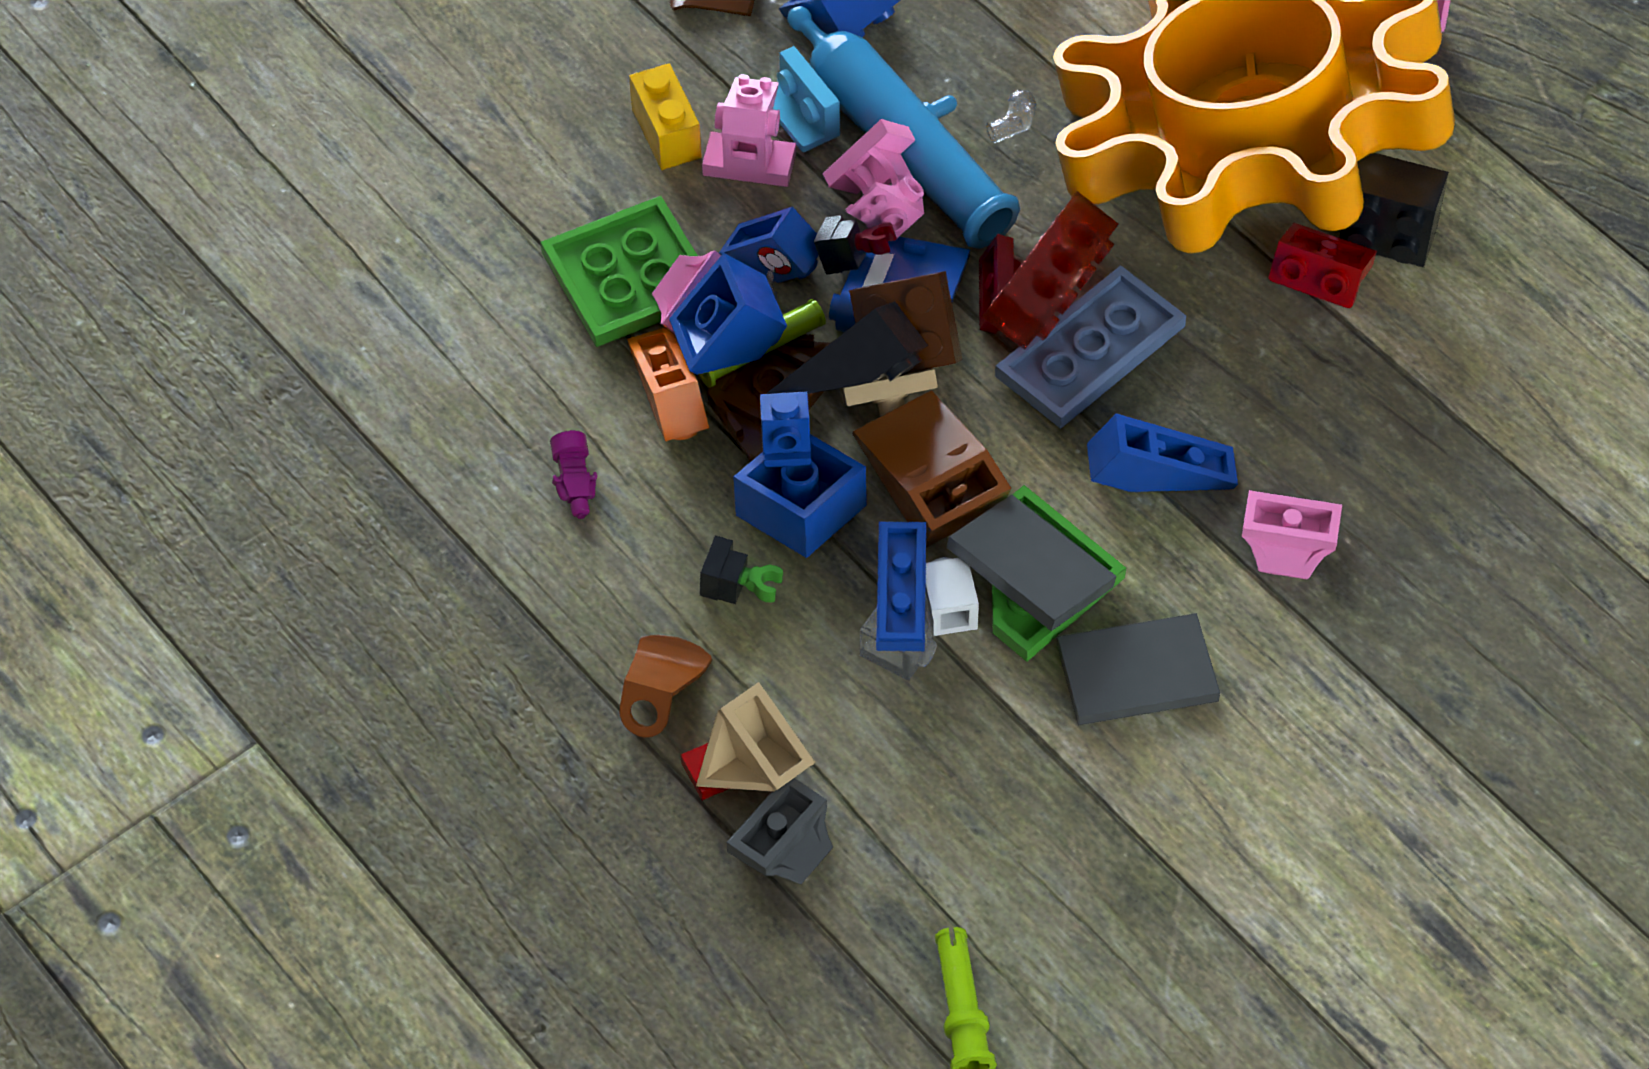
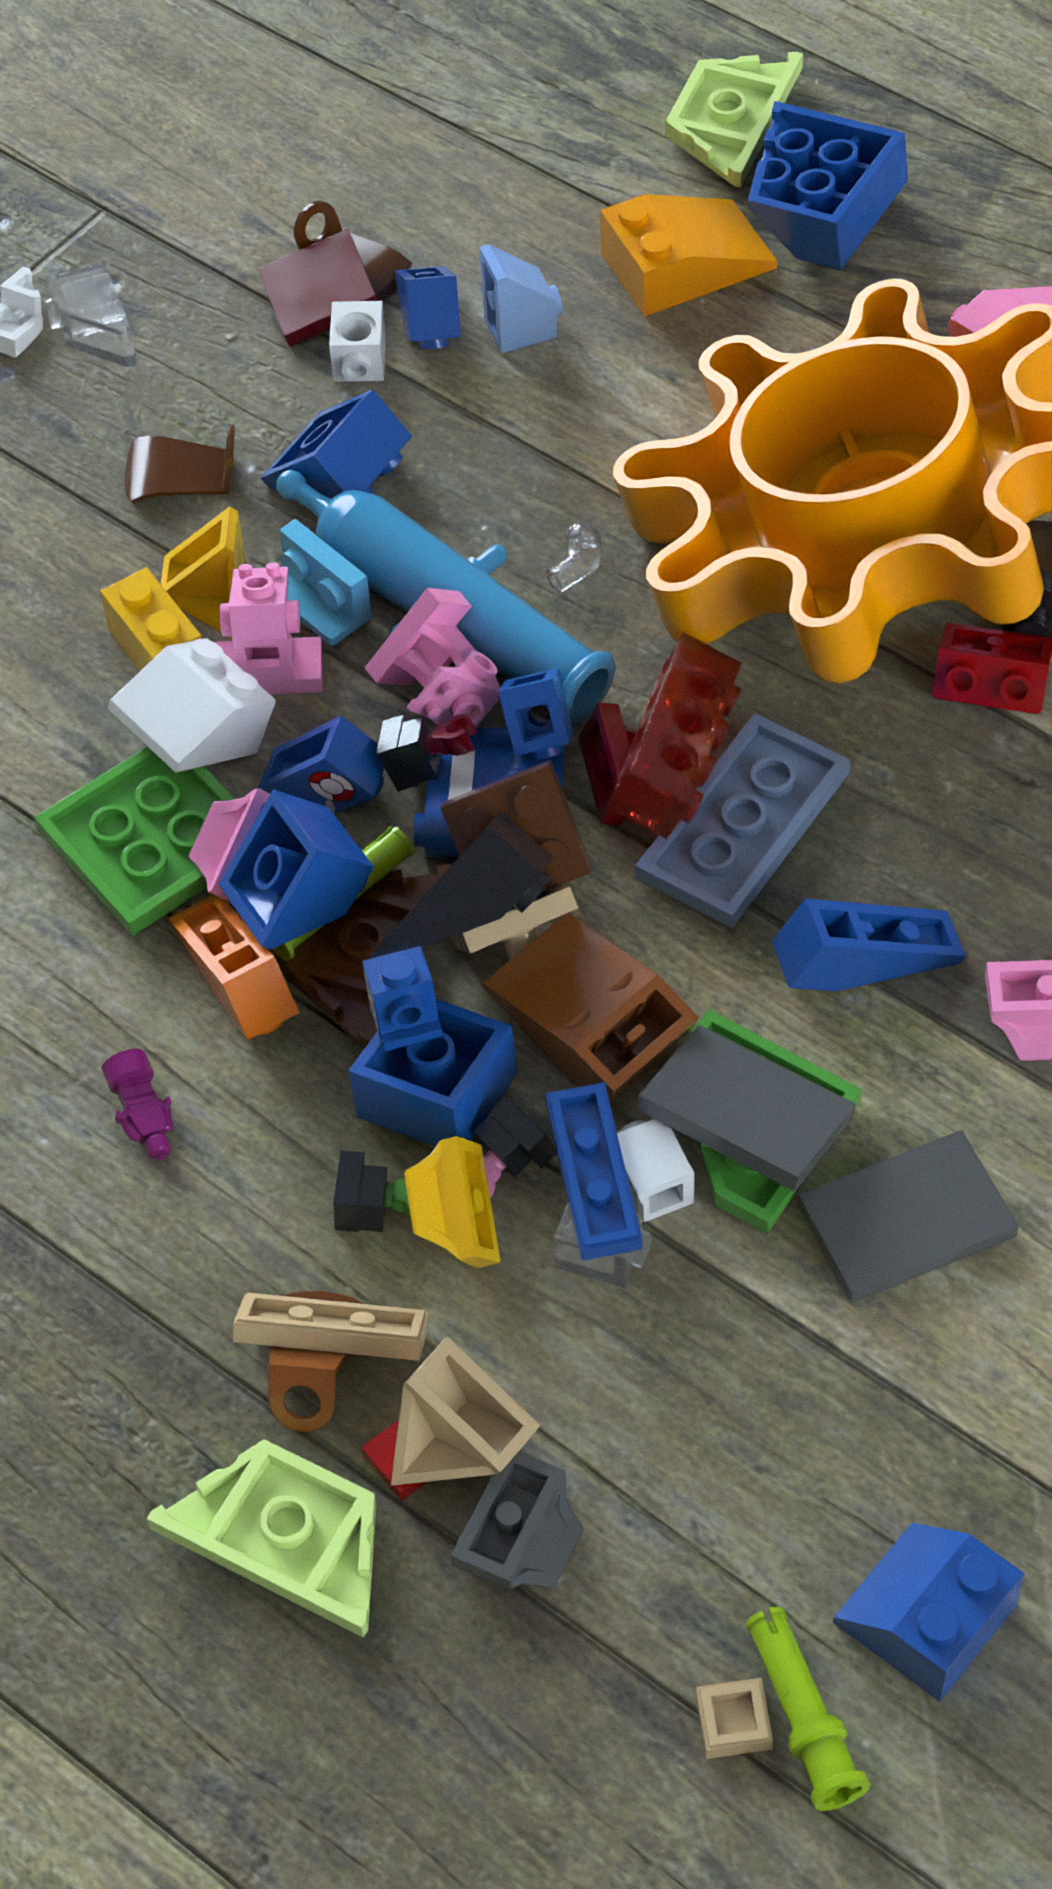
camera: 10 degrees left, 0 degrees up
(609, 801) = (284, 1530): none -> yellowish green wing
(678, 663) = (331, 1326): none -> tan tile
(682, 179) = (194, 706): none -> white slope
(713, 70) = (202, 567): none -> yellow slope
(790, 589) = (453, 1202): none -> yellow slope
(847, 556) = (511, 1142): none -> black piece
(909, 1000) = (734, 1718): none -> tan tile
(934, 245) = (526, 733): none -> blue brick
(1079, 952) = (932, 1605): none -> blue slope

